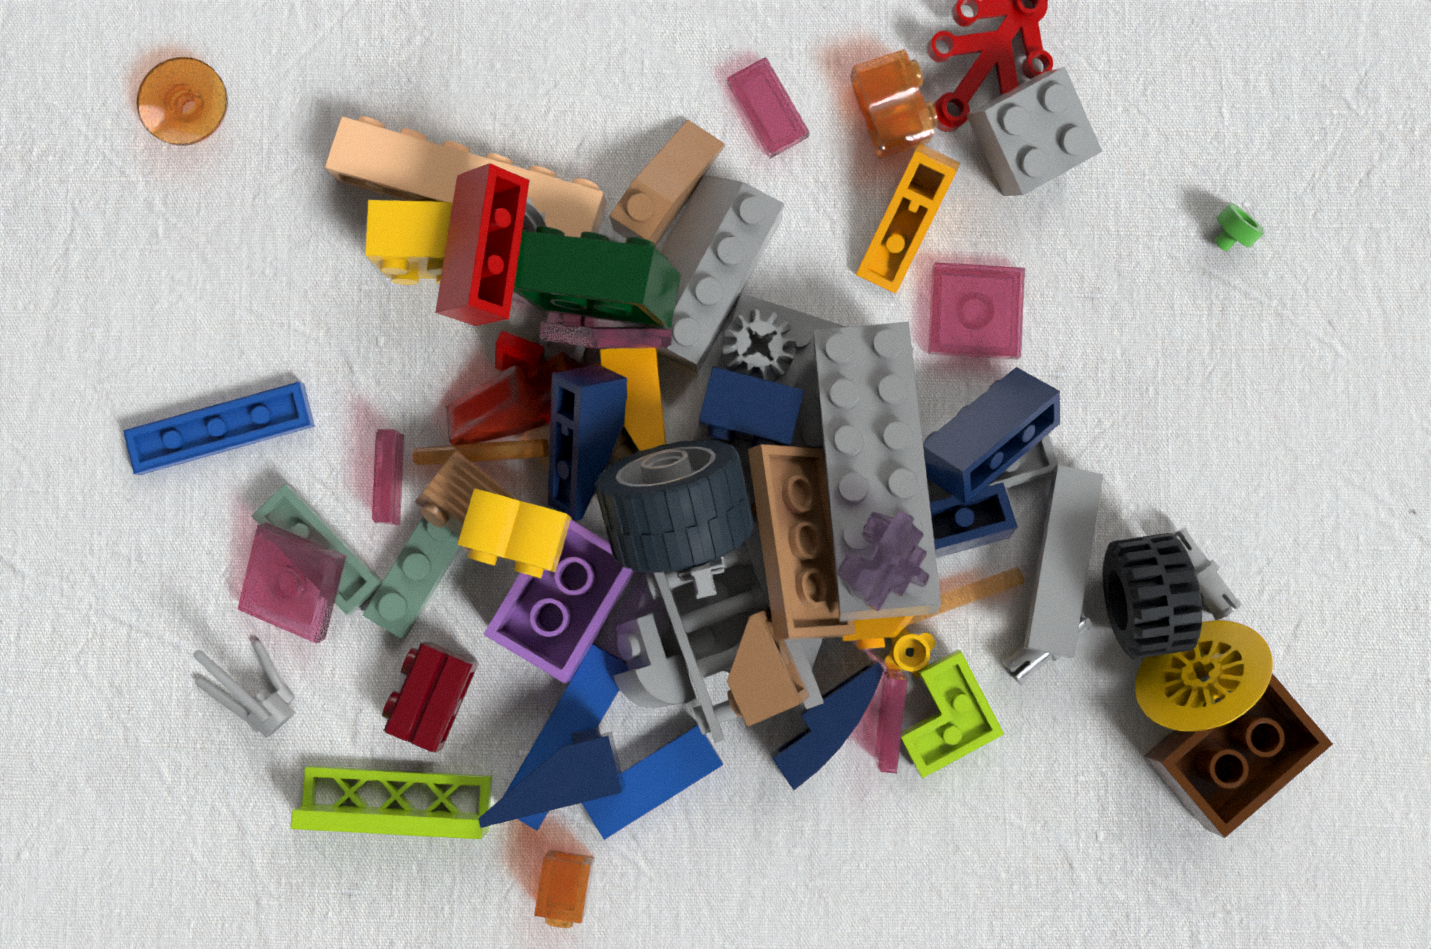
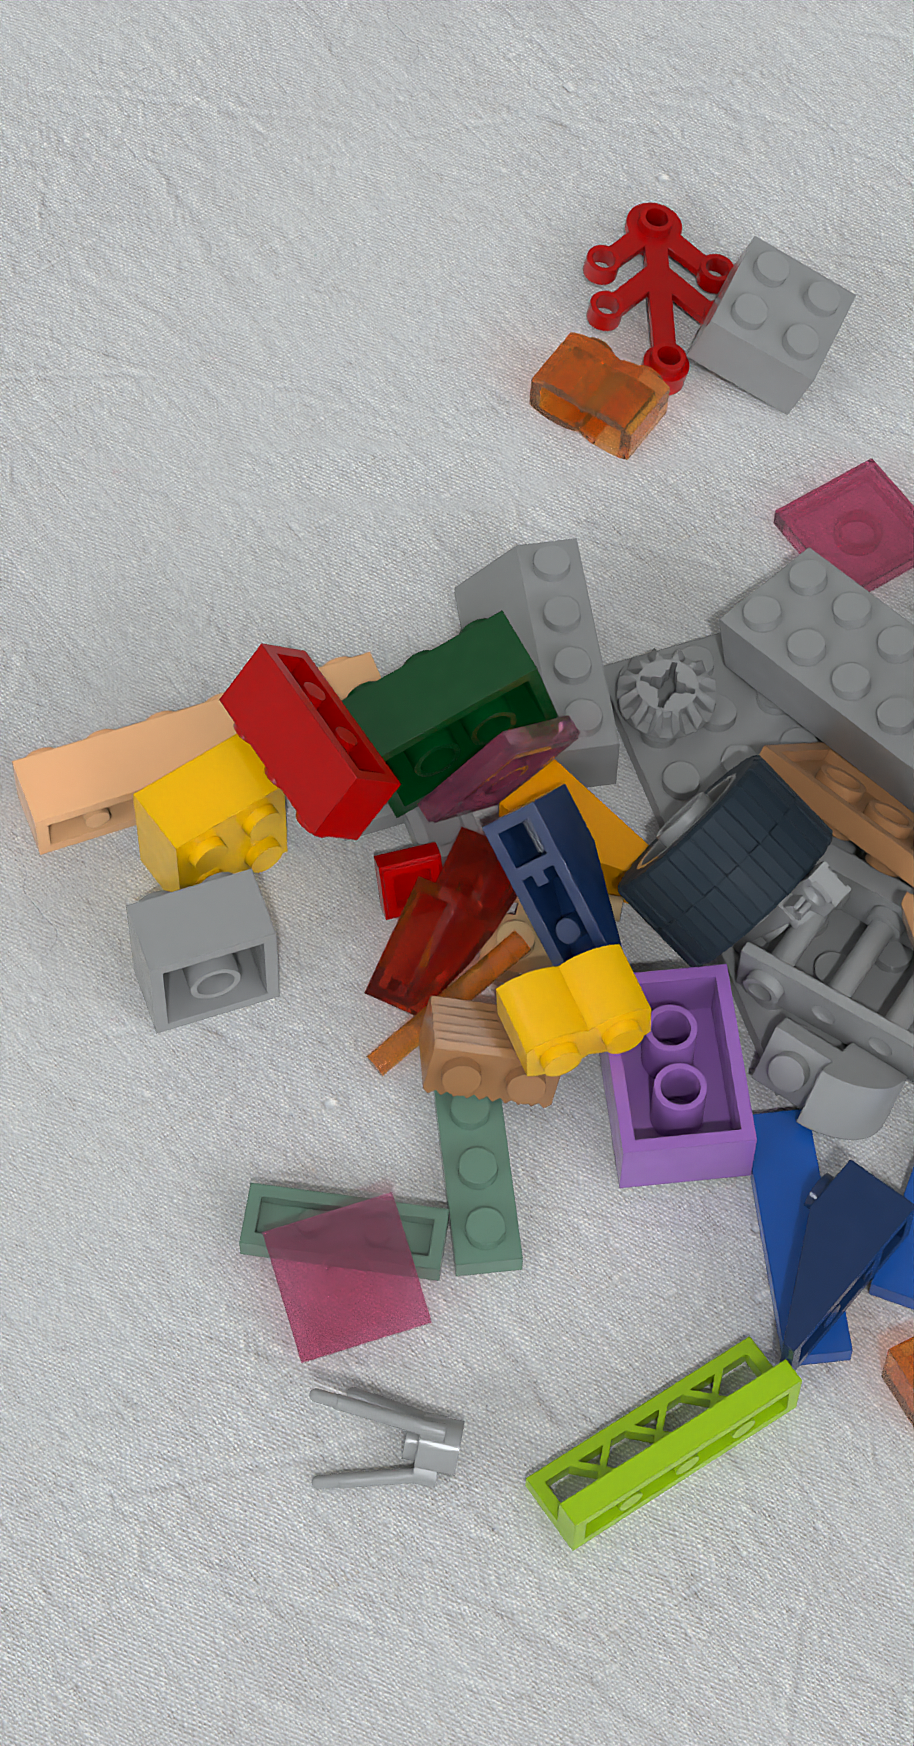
camera: 40 degrees left, 25 degrees down
(218, 428) = (114, 1192): blue tile -> none
(355, 320) = (203, 949): none -> light grey brick
(388, 477) = (365, 1099): clear pink tile -> none
(429, 696) = (609, 1291): dark red brick -> none
(665, 184) = (423, 598): medium nougat slope -> none
(749, 409) = (704, 742): dark blue brick -> none
(768, 107) = (468, 482): clear pink tile -> none
(908, 218) = (711, 483): light orange slope -> none

